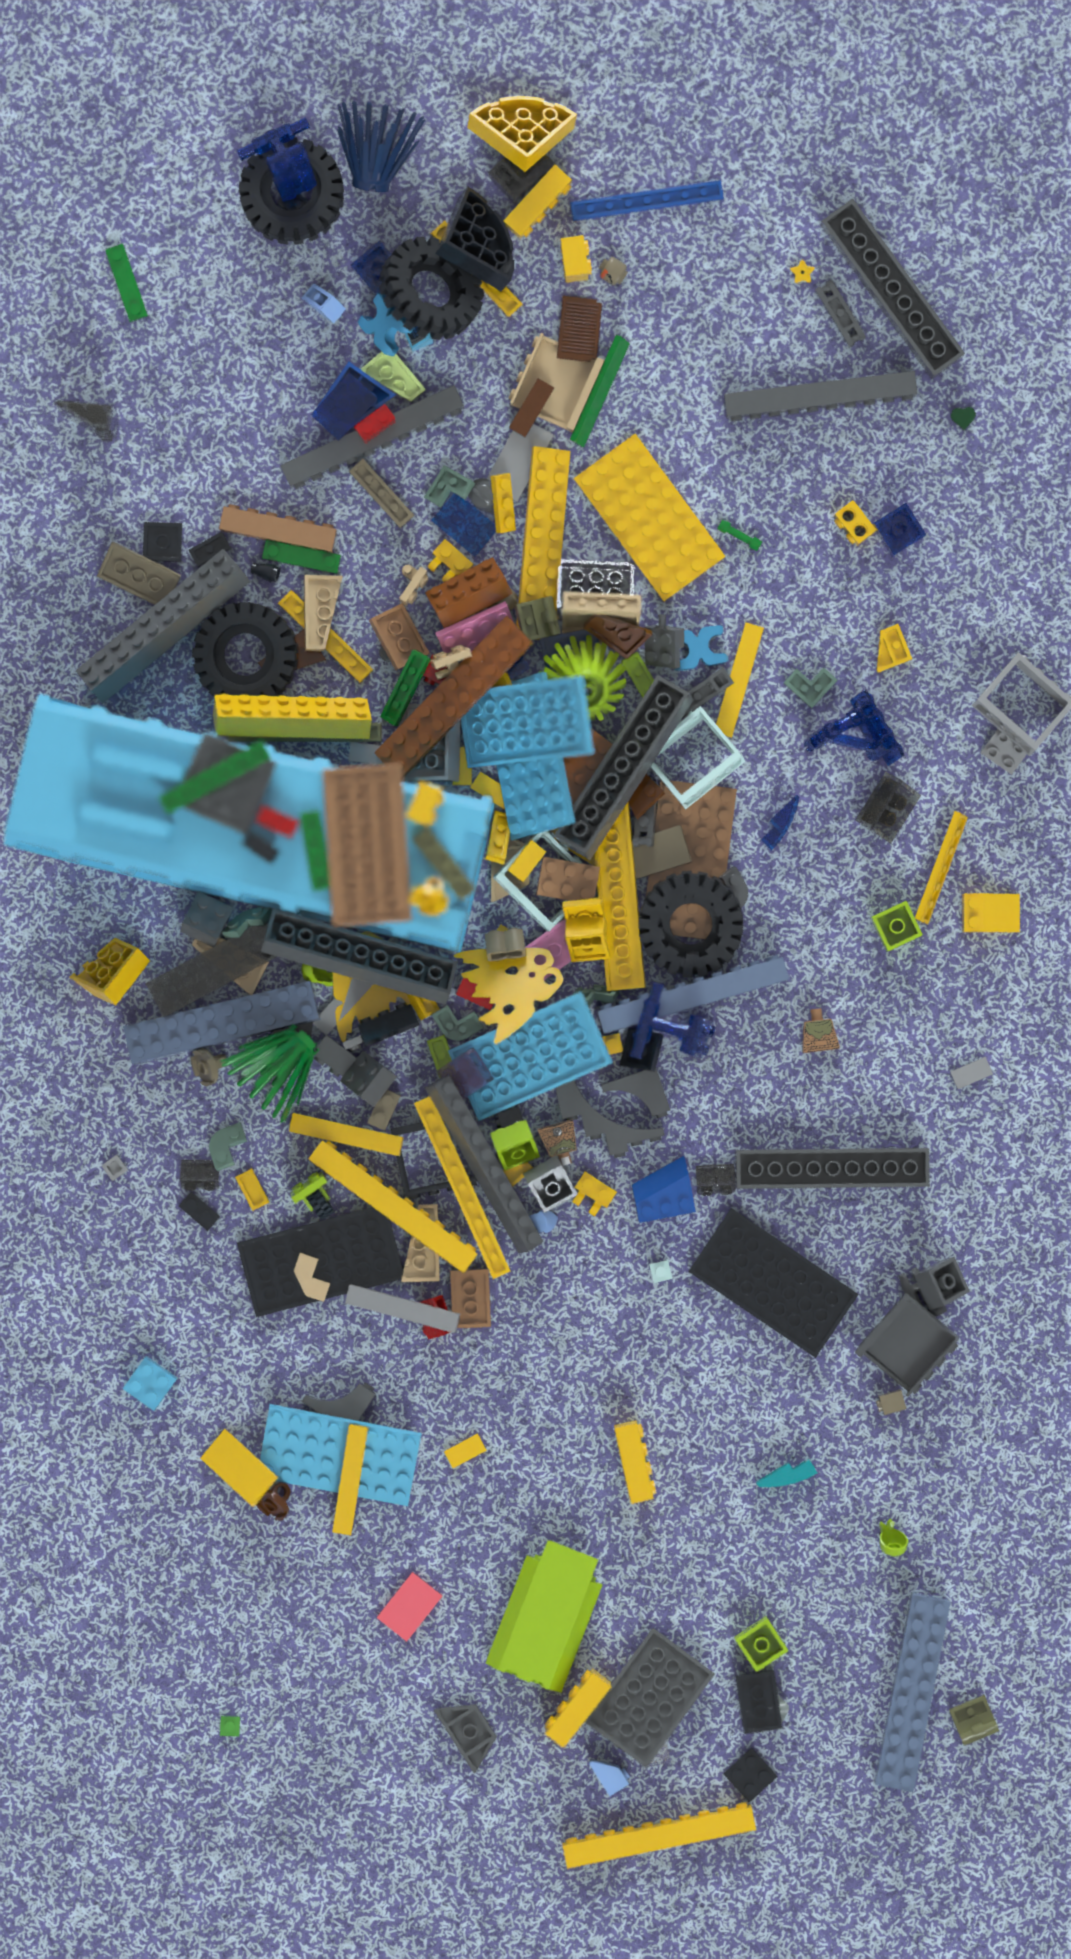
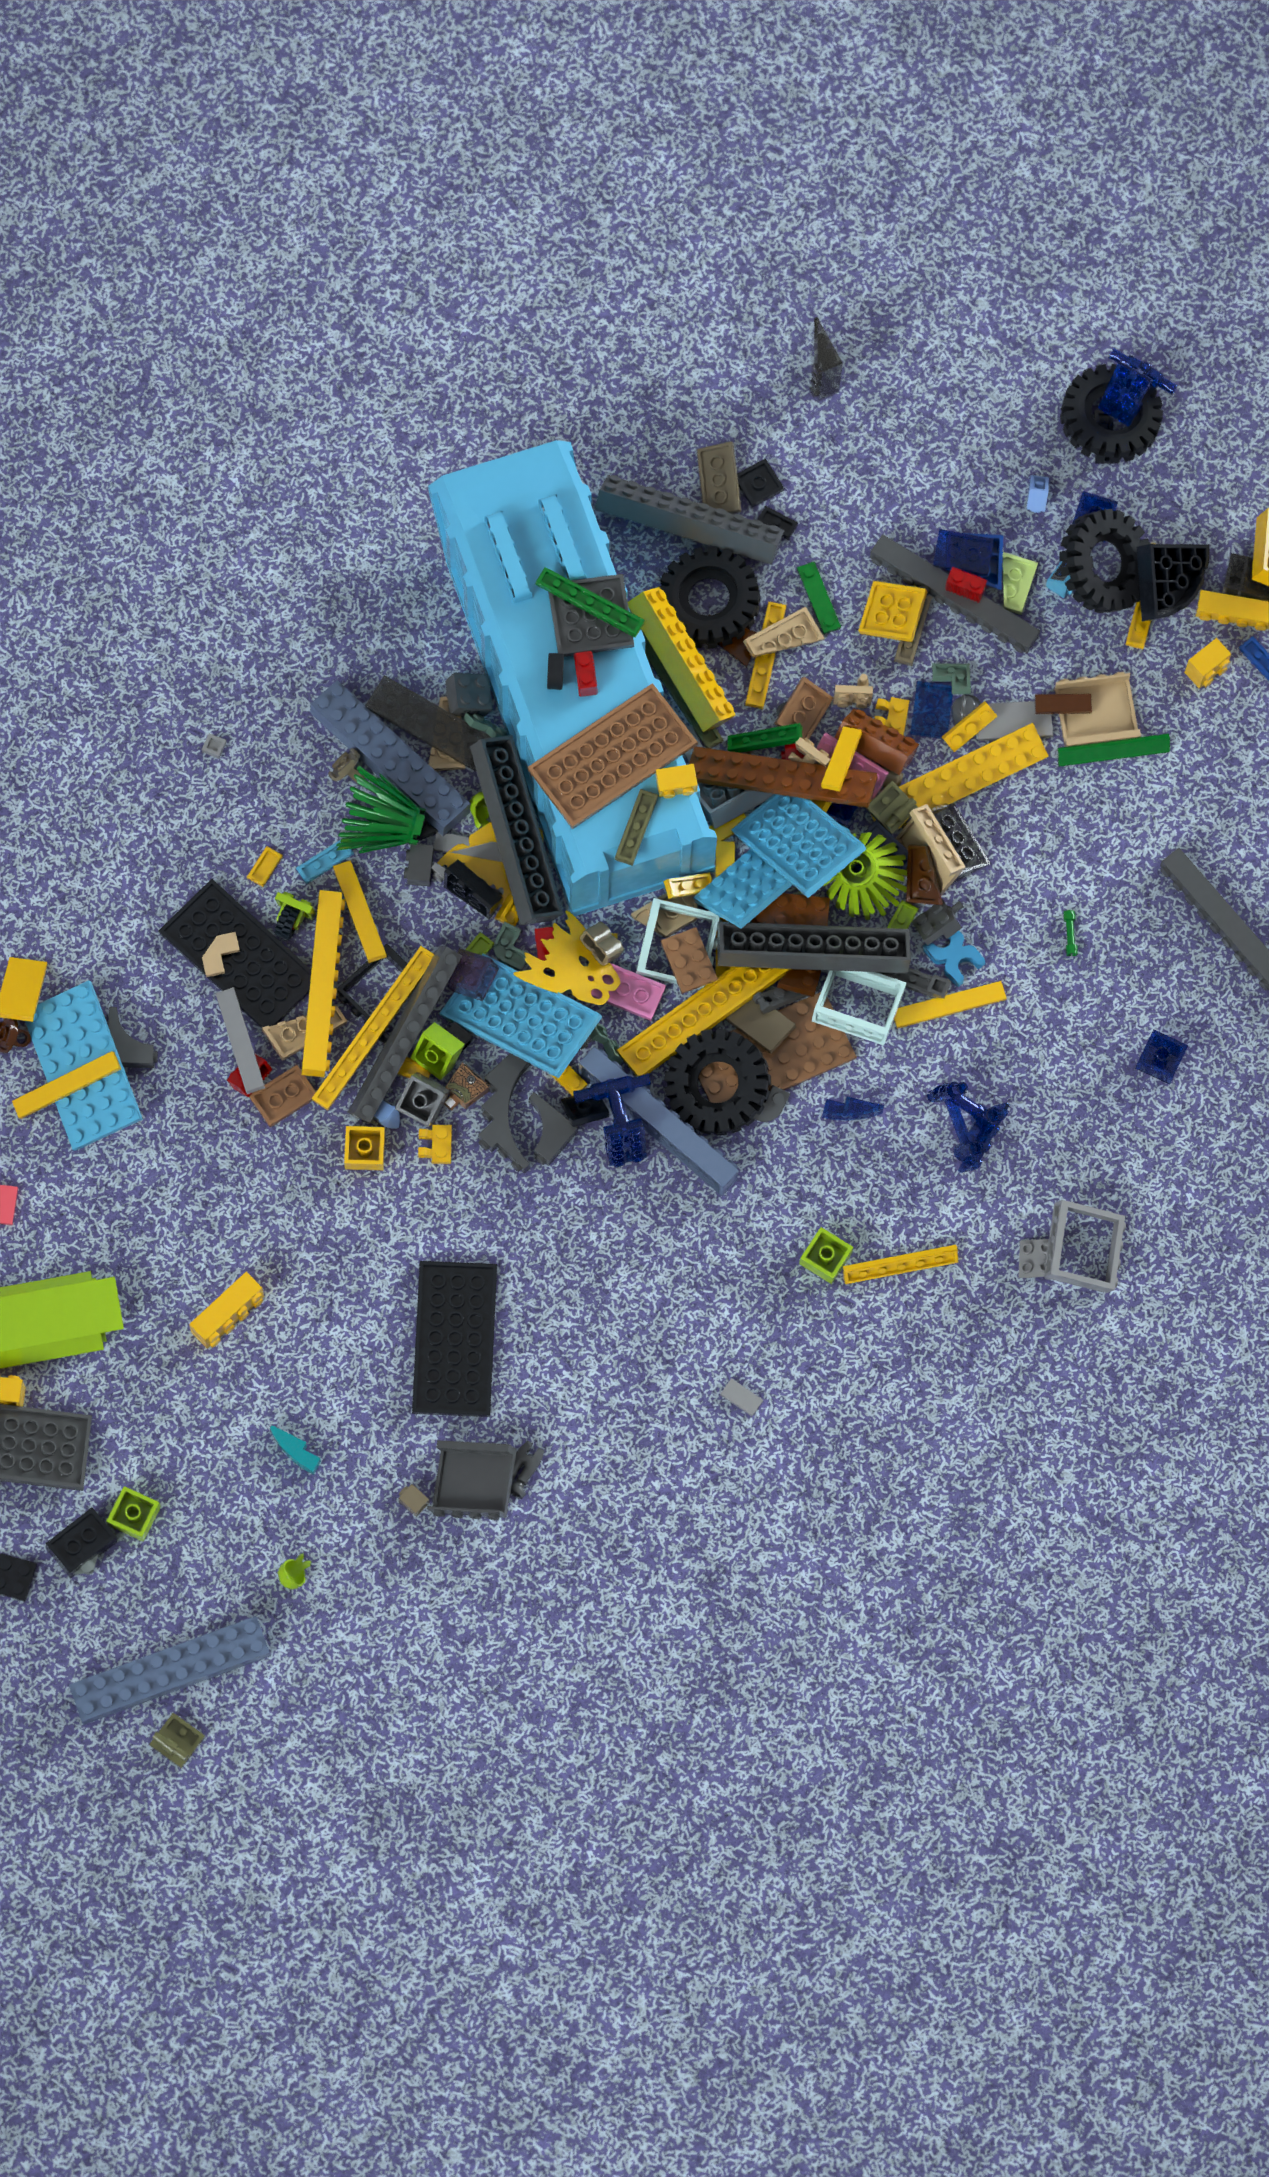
camera: 55 degrees right, 15 degrees down
(113, 971) = (378, 649): yellow wedge -> none
(126, 282) = (950, 334): green plate -> none
(150, 1383) = (48, 878): medium azure brick -> none
(199, 1175) = (250, 816): clear smoke bracket -> none
(199, 1211) = (219, 835): black plate -> none
(222, 1142) = (291, 818): sand green plate -> none
(268, 572) = (789, 580): black cone -> none
(277, 529) = (829, 565): medium nougat brick -> none
(278, 1137) = (323, 862): none -> medium azure tile
(315, 850) = (582, 718): green tile -> none
(356, 501) = (892, 611): none -> yellow plate
(368, 1078) = (418, 899): dark grey brick -> none
(370, 157) = (1181, 462): dark blue plant -> none
(383, 326) = (1047, 548): dark azure piece -> none
(384, 1110) = (400, 930): dark tan brick -> none
(430, 899) = (599, 828): yellow tile -> none
(465, 1450) = (149, 1169): yellow tile -> none
(474, 638) = (841, 759): none -> yellow tile
(526, 860) = (683, 915): yellow tile -> none
(561, 1258) = (364, 1148): none -> yellow brick
(579, 329) = (1153, 704): reddish brown window -> none
(586, 930) = (656, 998): yellow bracket -> none
(613, 271) = (1219, 702): dark tan head -> none
(649, 517) = (1036, 852): yellow plate -> none
(660, 1271) = (405, 1239): light aqua plate -> none
(664, 1193) = (473, 1202): blue wedge -> none
(715, 1179) = (513, 1237): clear smoke bracket -> none
(810, 691) = (981, 1070): sand green plate -> none
(819, 1033) = (692, 1248): torso -> none
(832, 1168) = (585, 1326): dark grey brick -> none
(859, 520) = (1147, 1020): yellow brick -> none
(888, 807) = (922, 1190): clear smoke slope -> none
(892, 649) = (1058, 1113): yellow wing -> none
(942, 1283) = (543, 1477): dark grey brick -> none
(990, 912) = (889, 1329): yellow slope -> none

